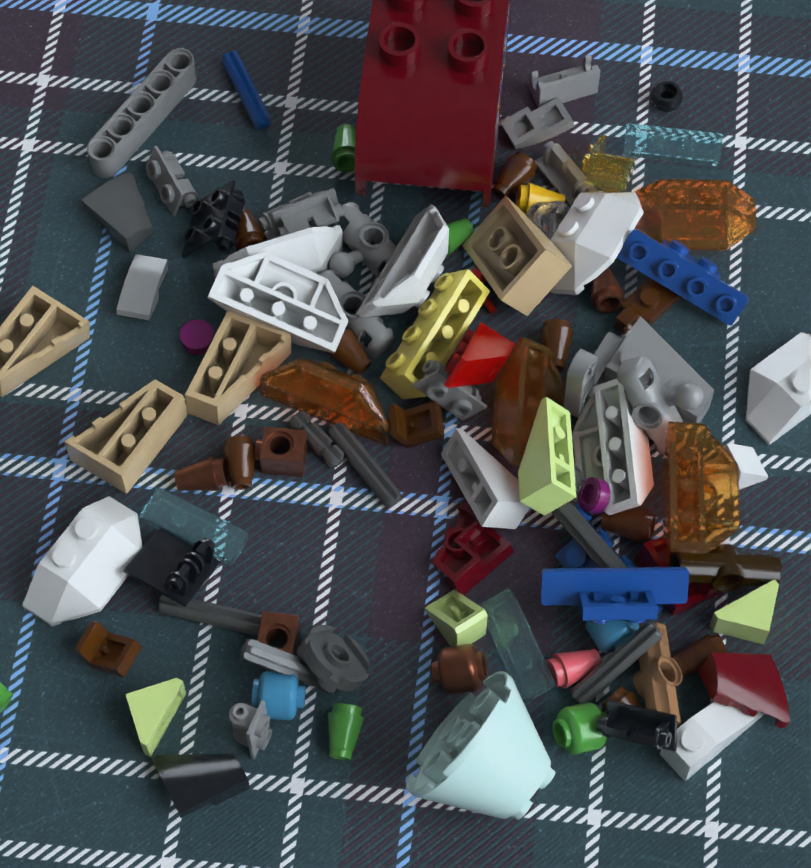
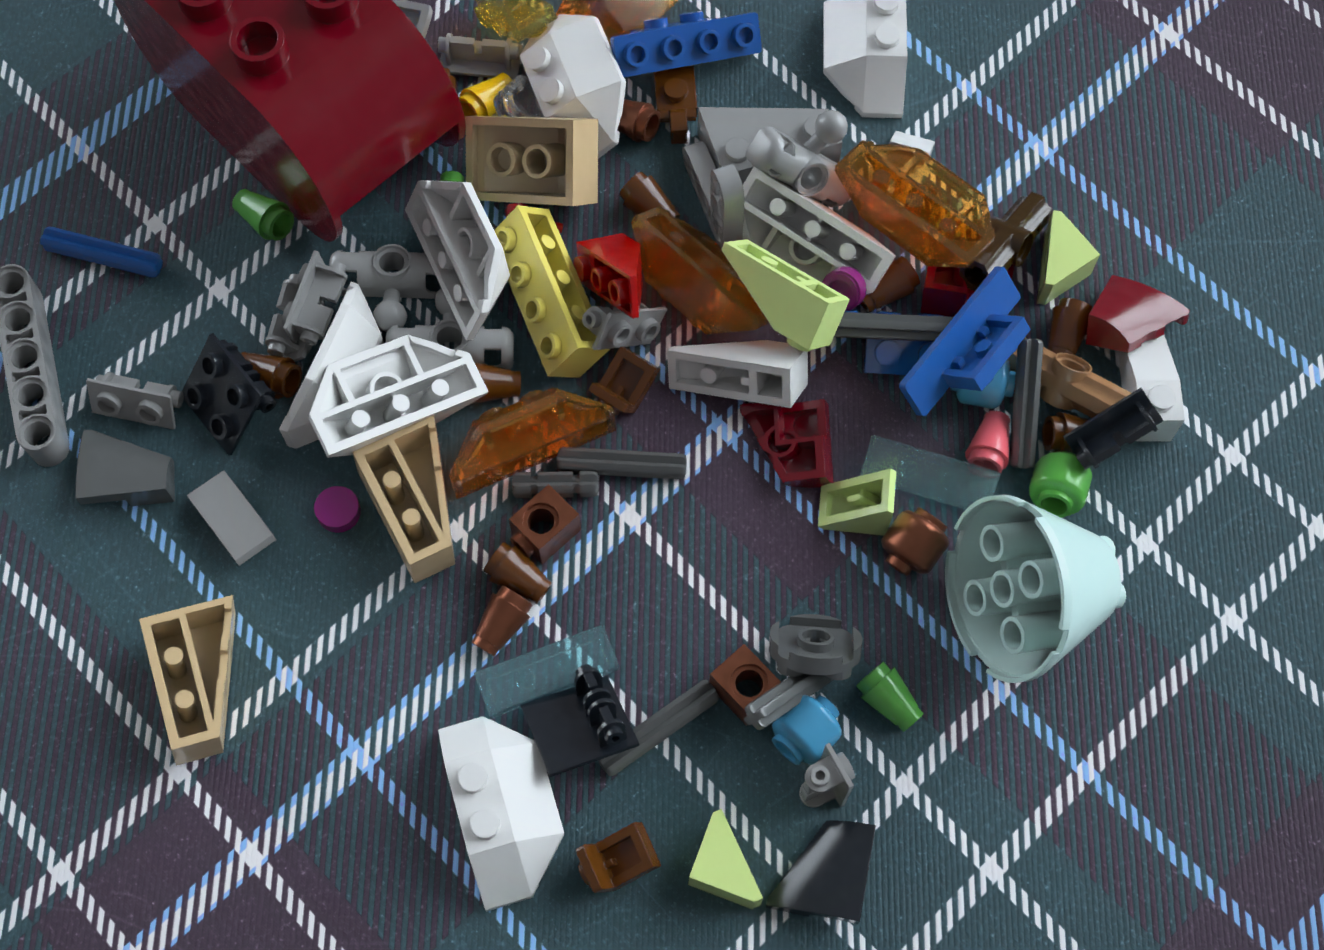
camera: 50 degrees left, 5 degrees up
(130, 437) = (398, 661): tan wedge -> none

